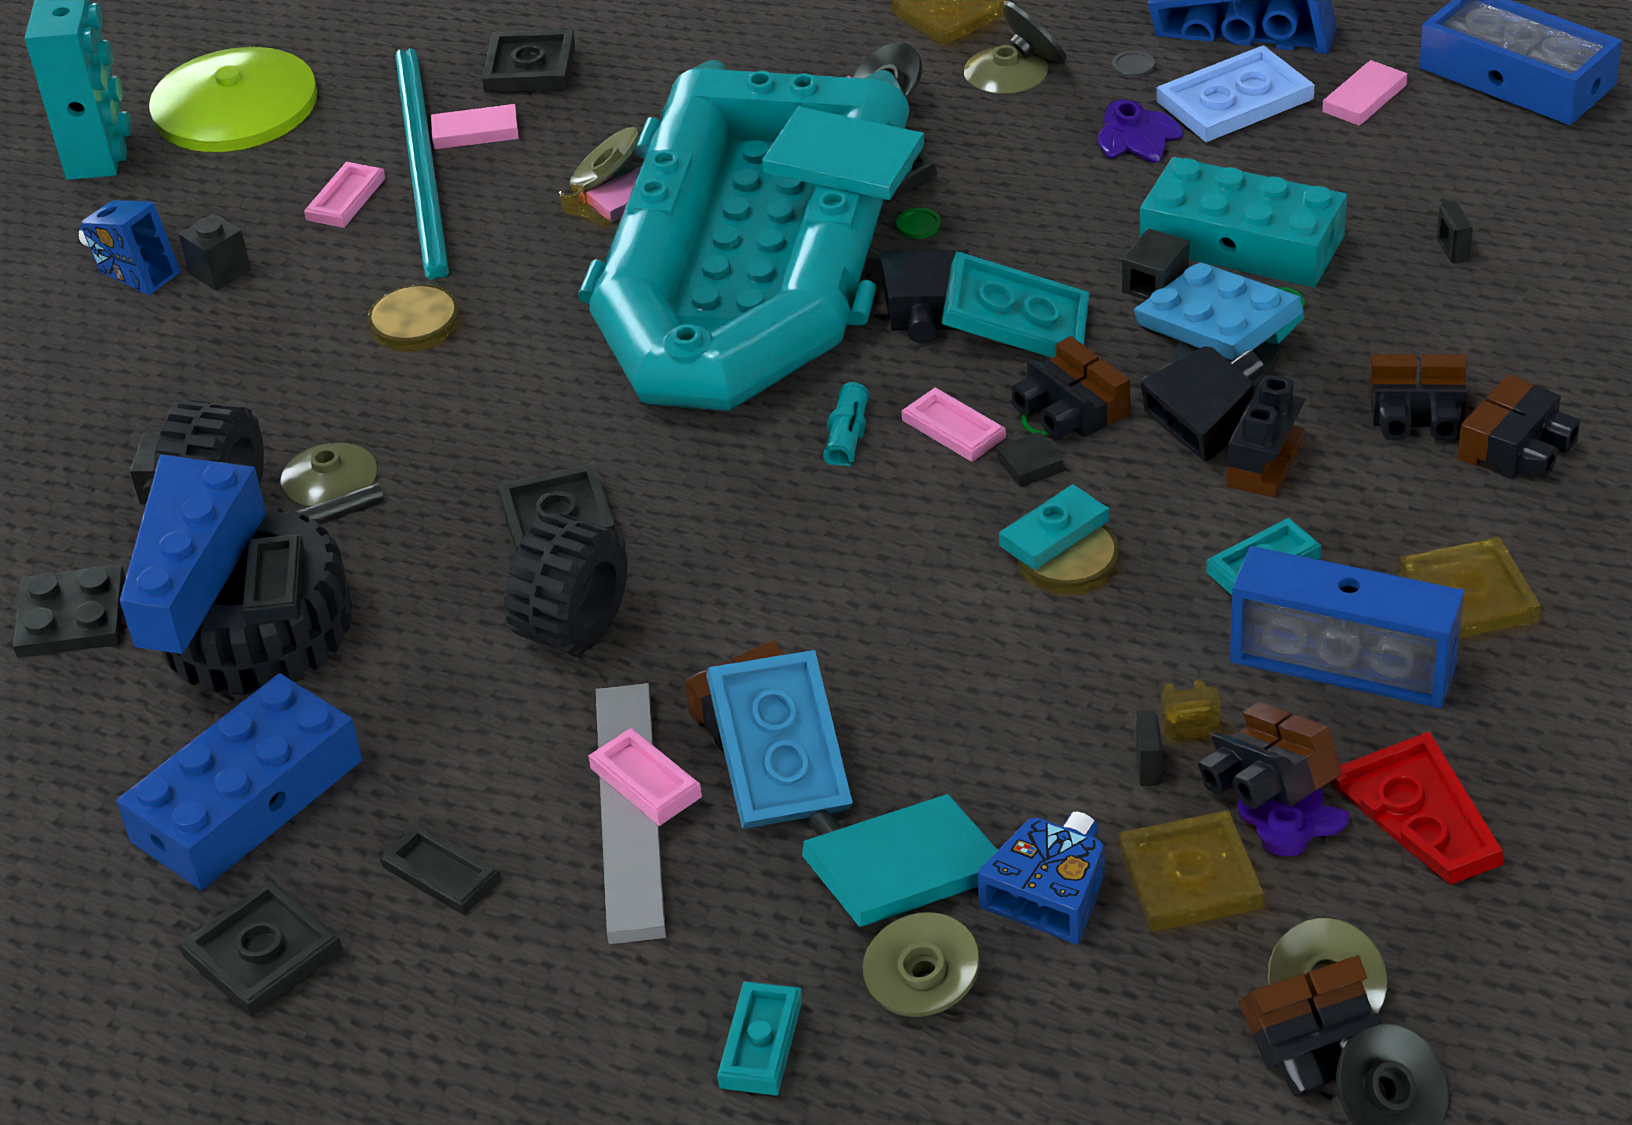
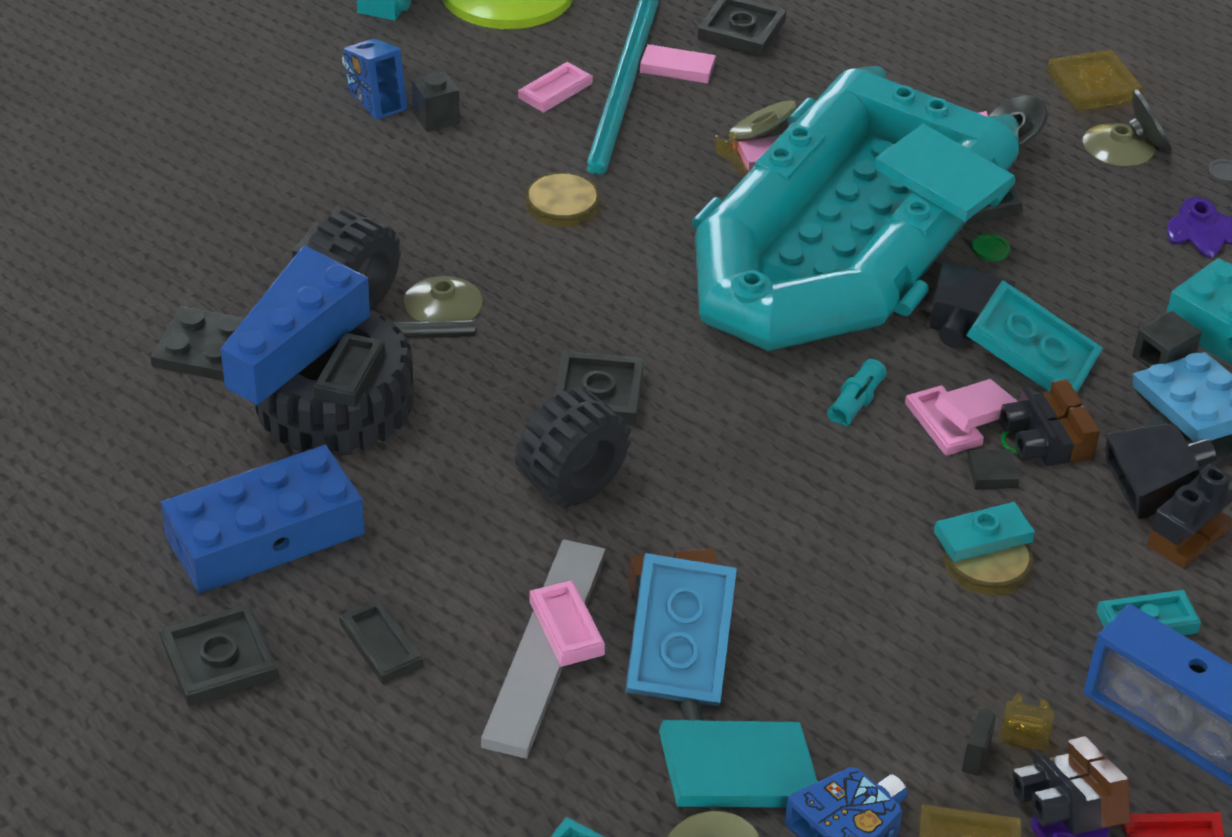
camera: 15 degrees right, 0 degrees up
(980, 396) = (973, 404): none -> bright pink tile

